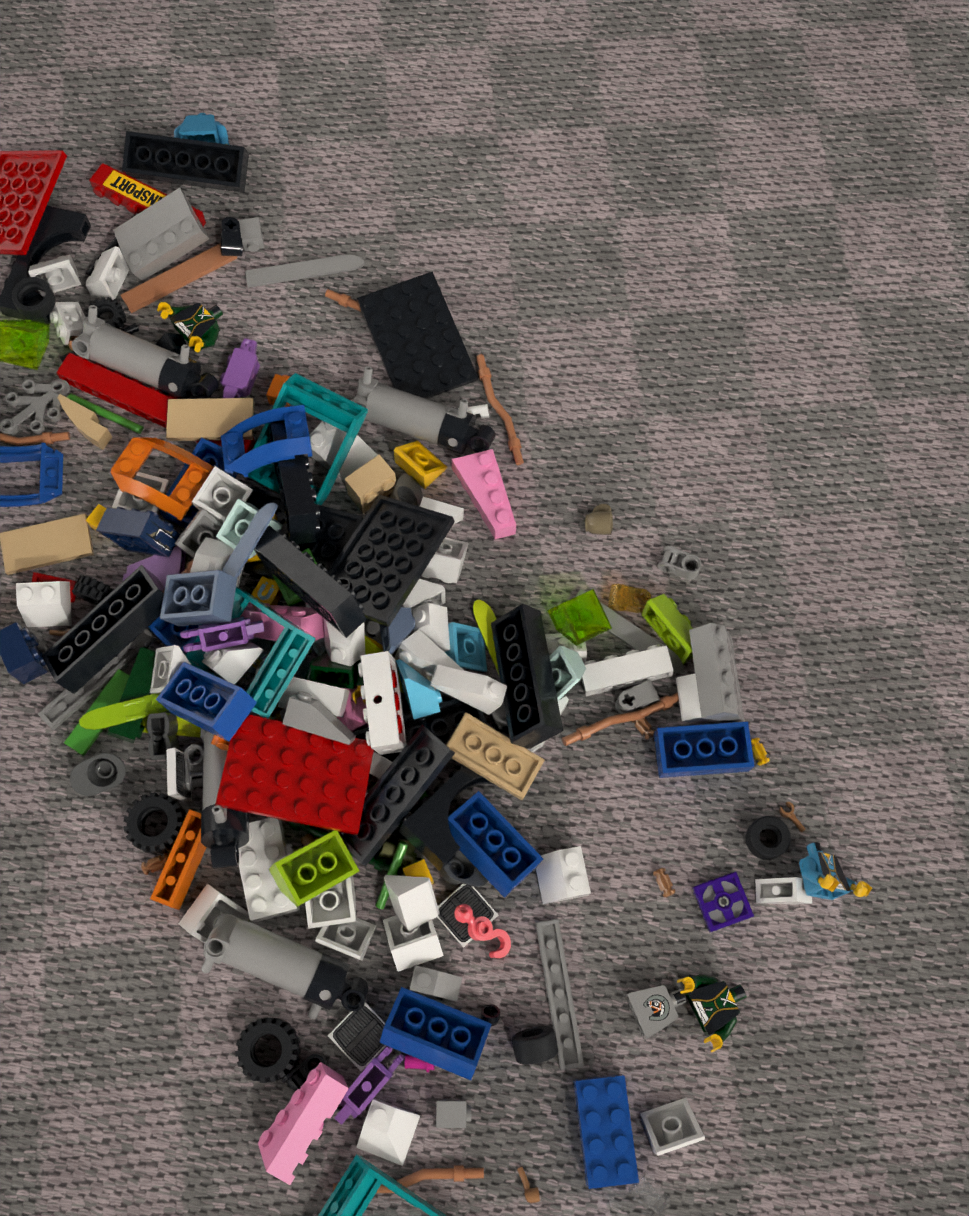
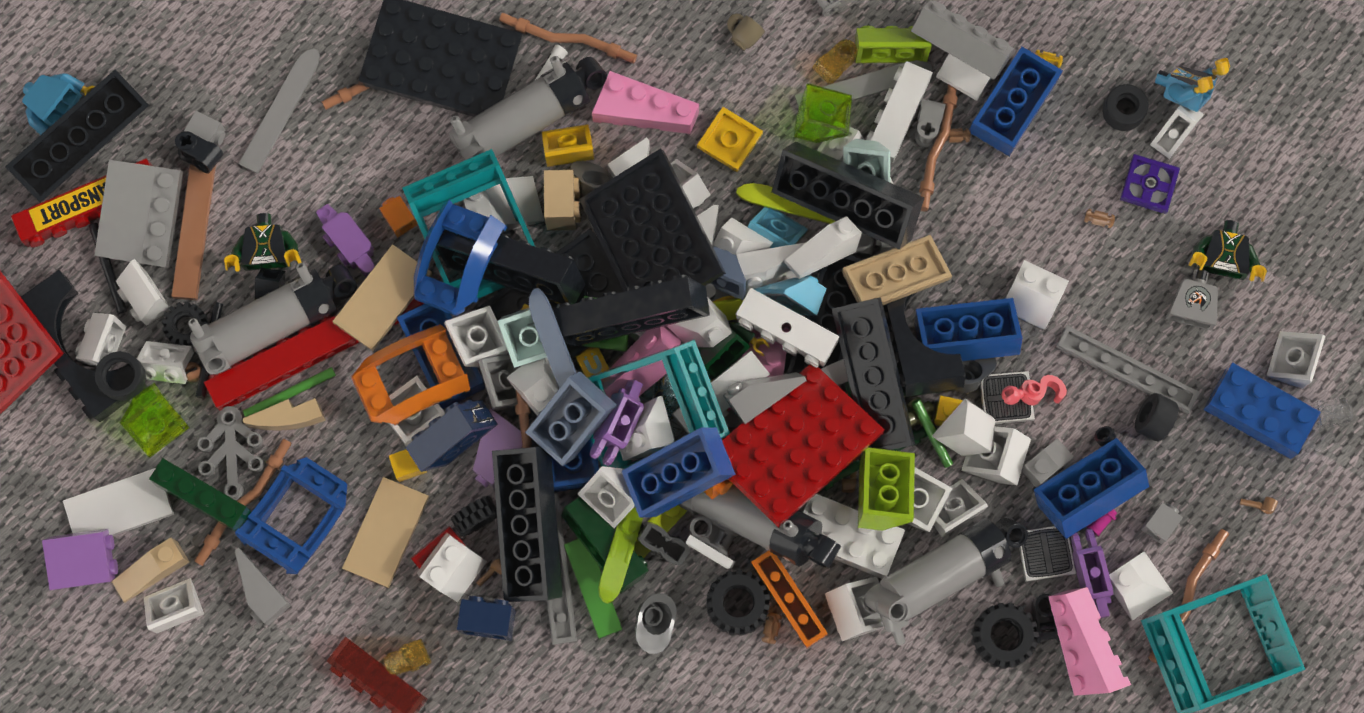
camera: 50 degrees left, 5 degrees up
(510, 568) = (730, 139): none -> yellow plate
(791, 816) = (1120, 75): medium nougat hand -> none

